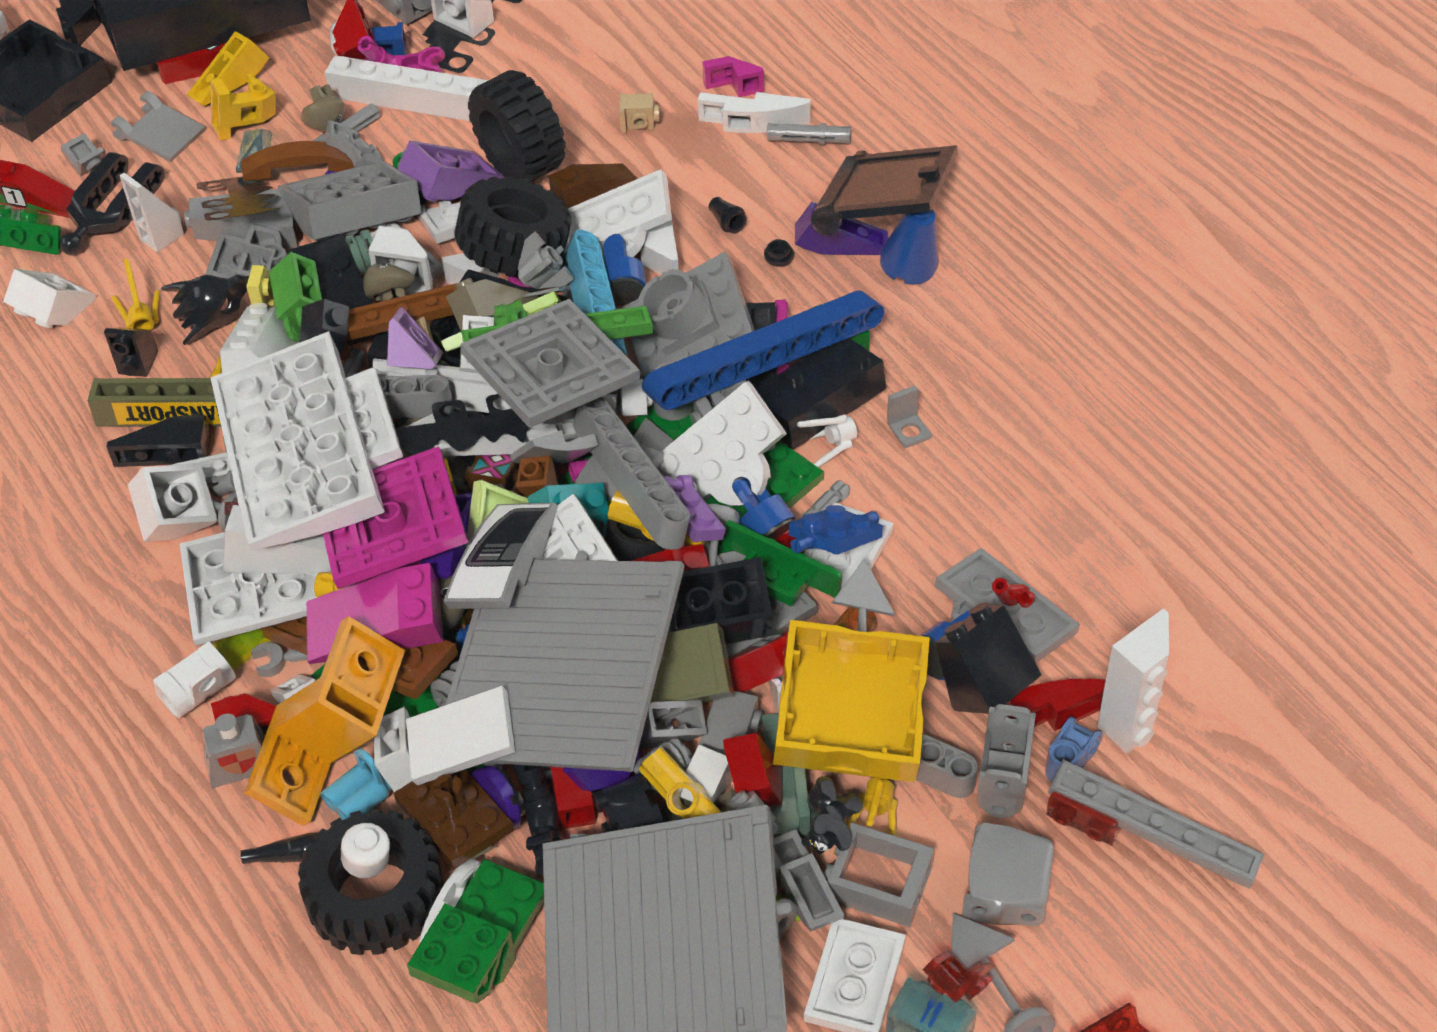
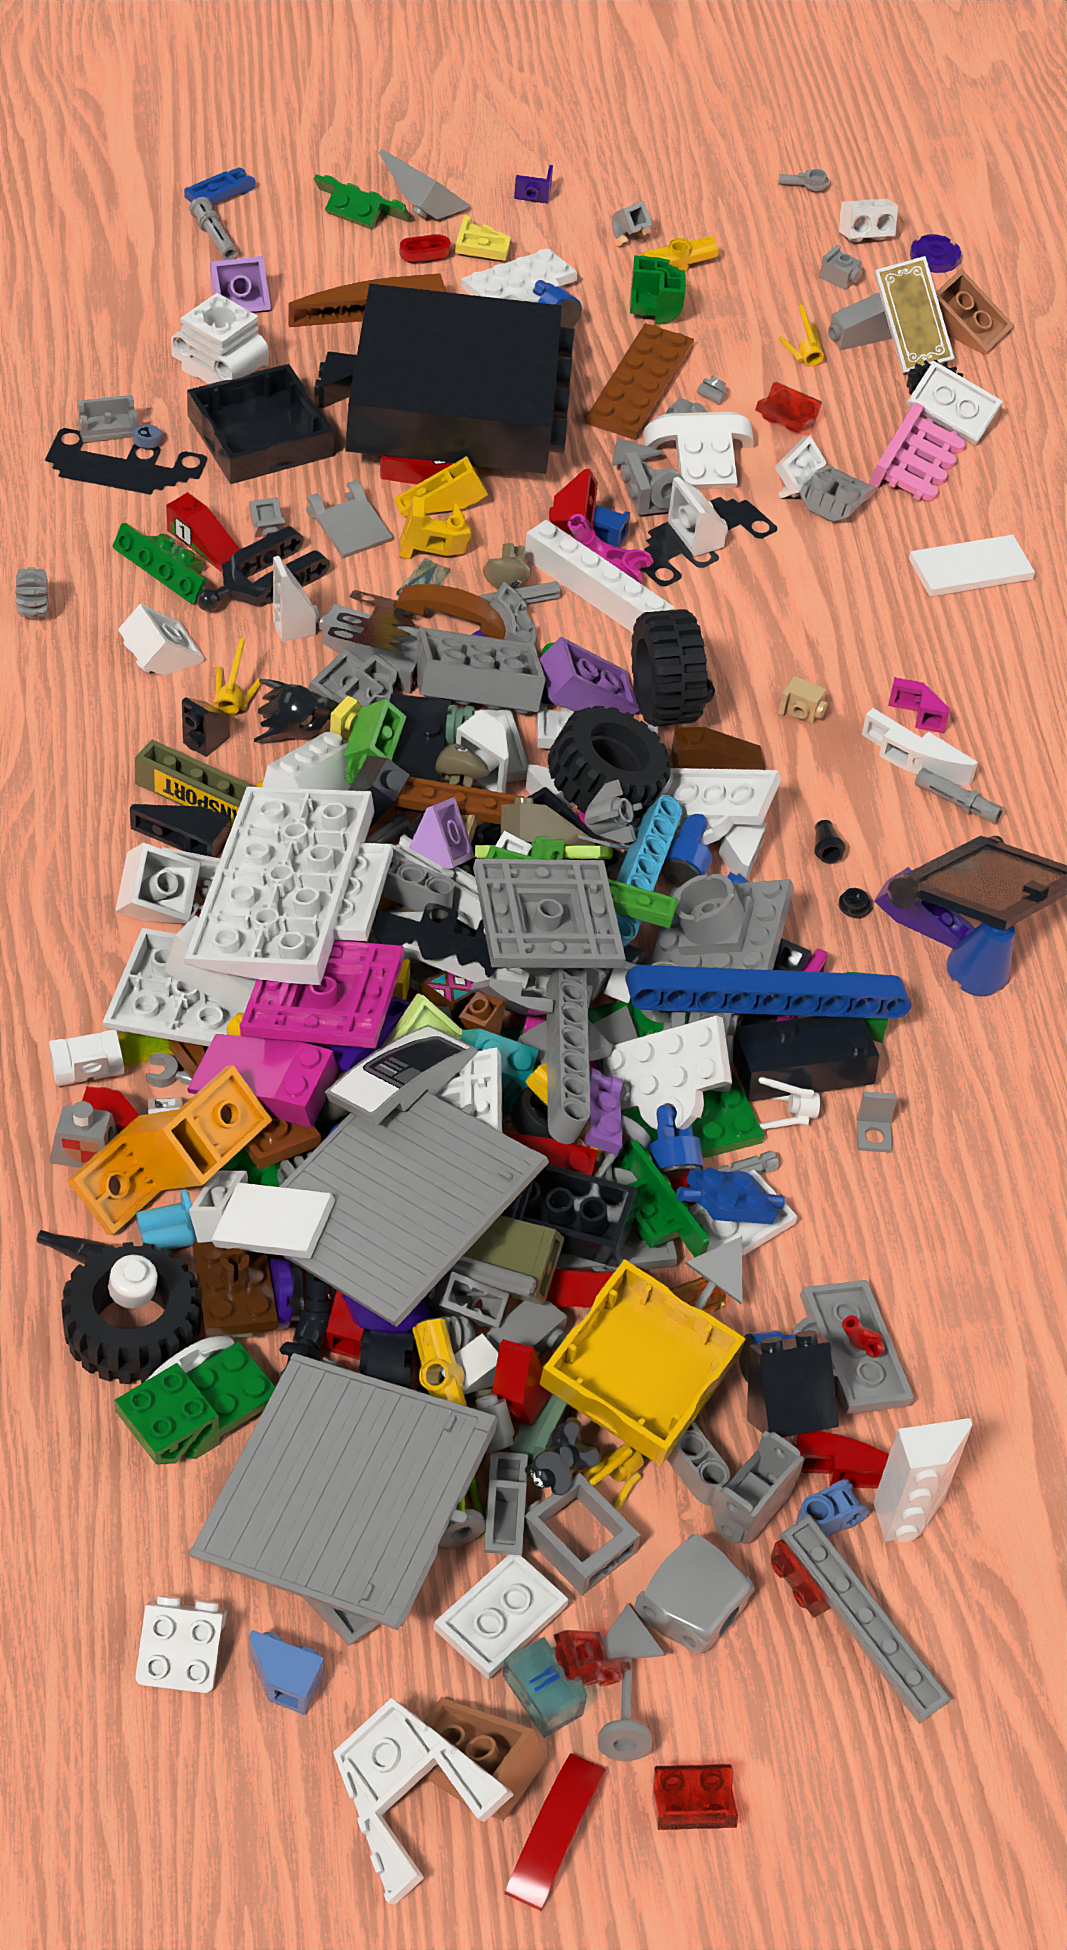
camera: 20 degrees right, 0 degrees up
(689, 688) = (495, 1276): none -> light grey axle

